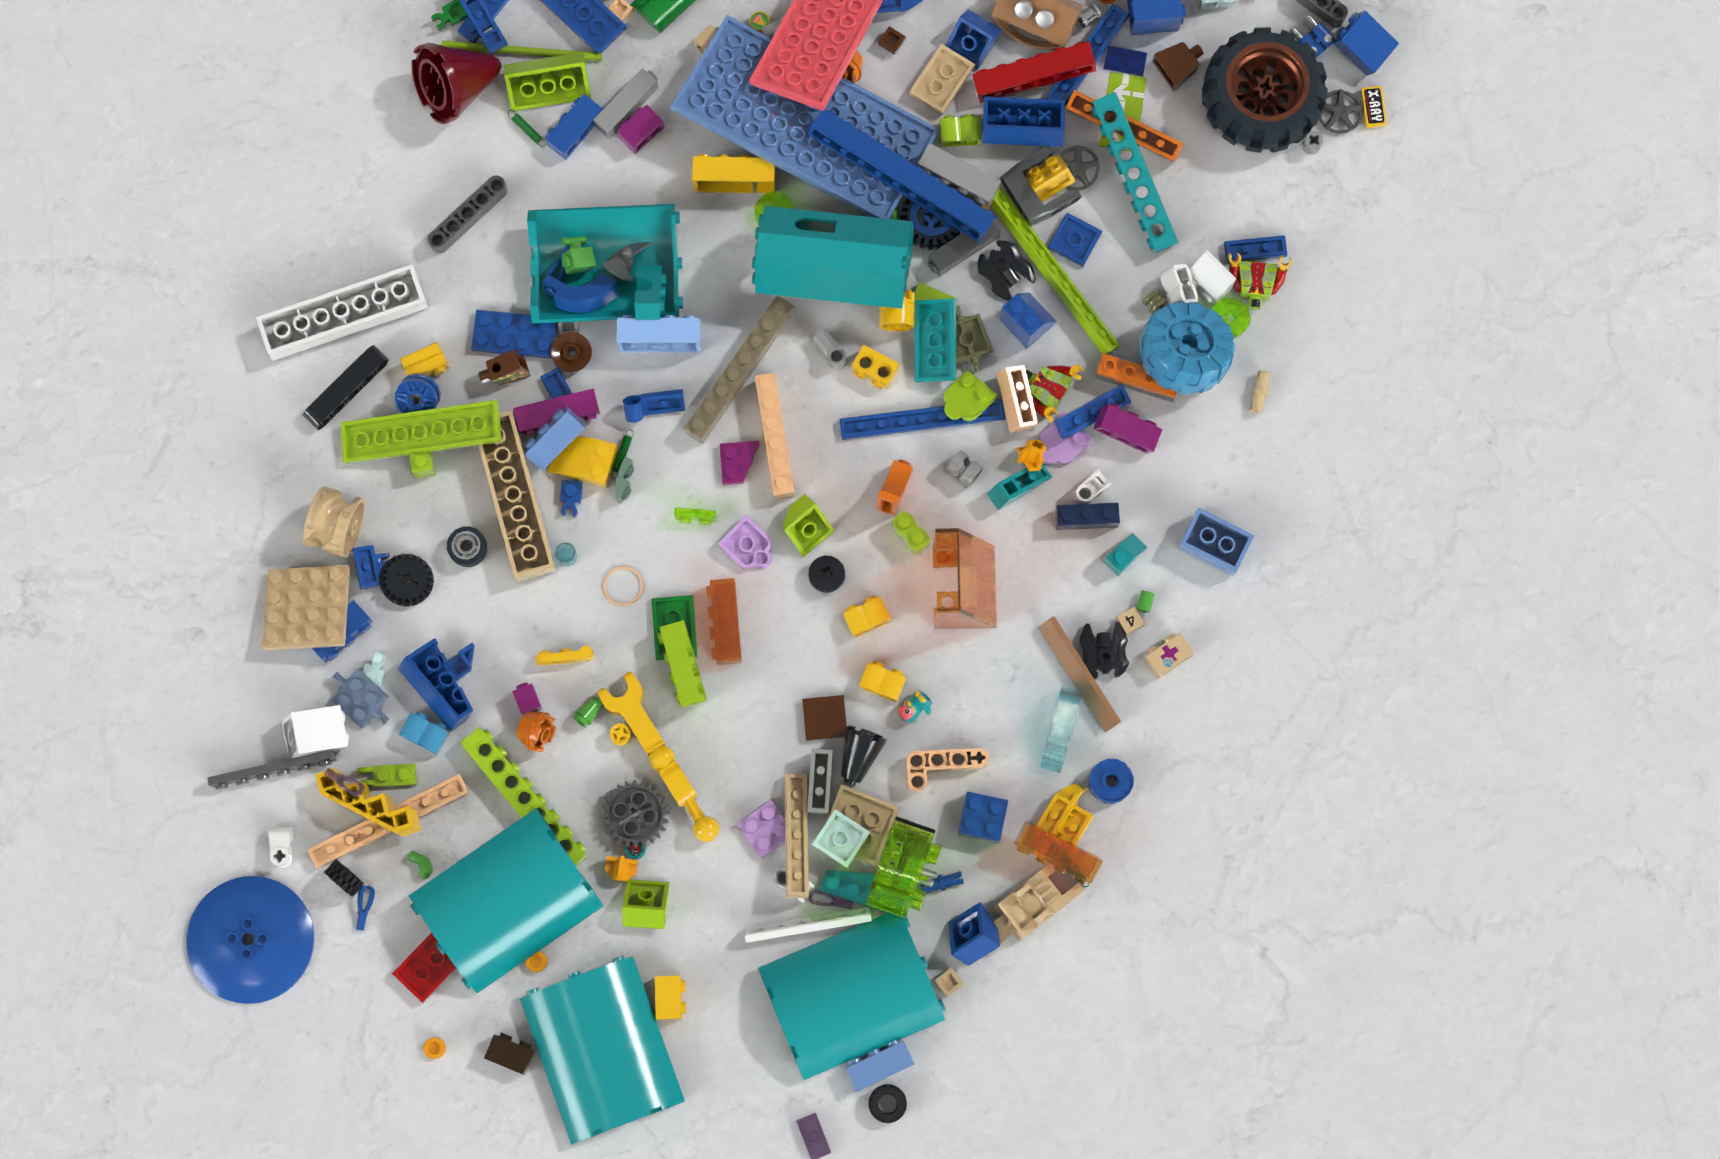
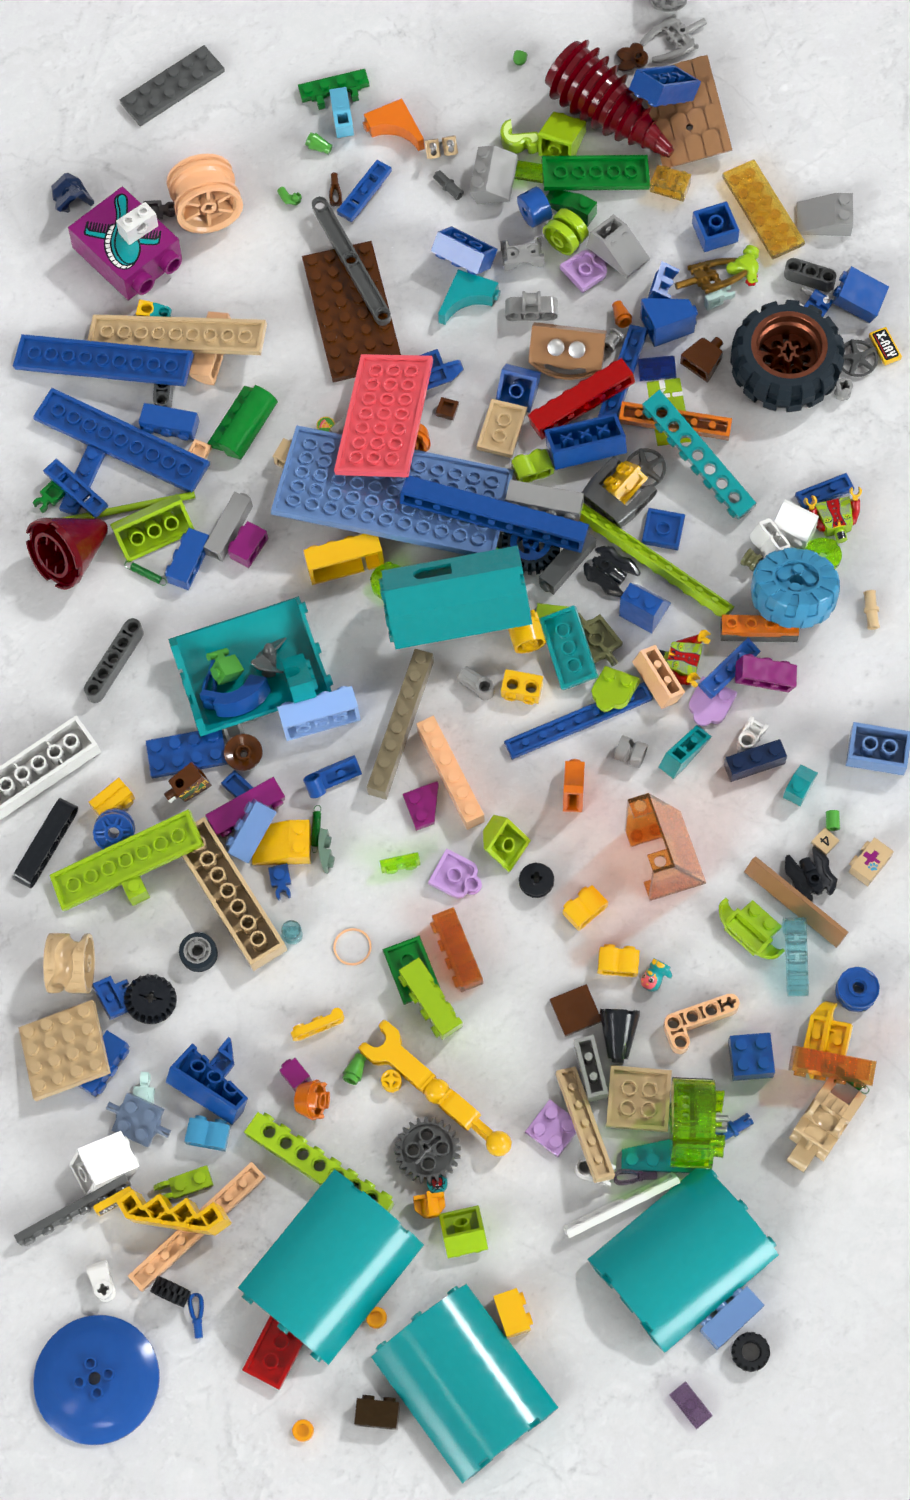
camera: 10 degrees left, 10 degrees down
(309, 773) = (110, 1202): none -> yellow tile
(339, 778) = (140, 1197): piece -> none
(423, 863) = (242, 1257): bright green arm -> none
(841, 838) = (627, 1114): light aqua plate -> none
(907, 529) = (604, 822): lime brick -> none
(949, 982) = (770, 1219): tan plate -> none
(973, 935) = (779, 1167): blue slope -> none
(1026, 688) = (751, 928): none -> lime plate
(1032, 454) = (688, 720): light orange piece -> none

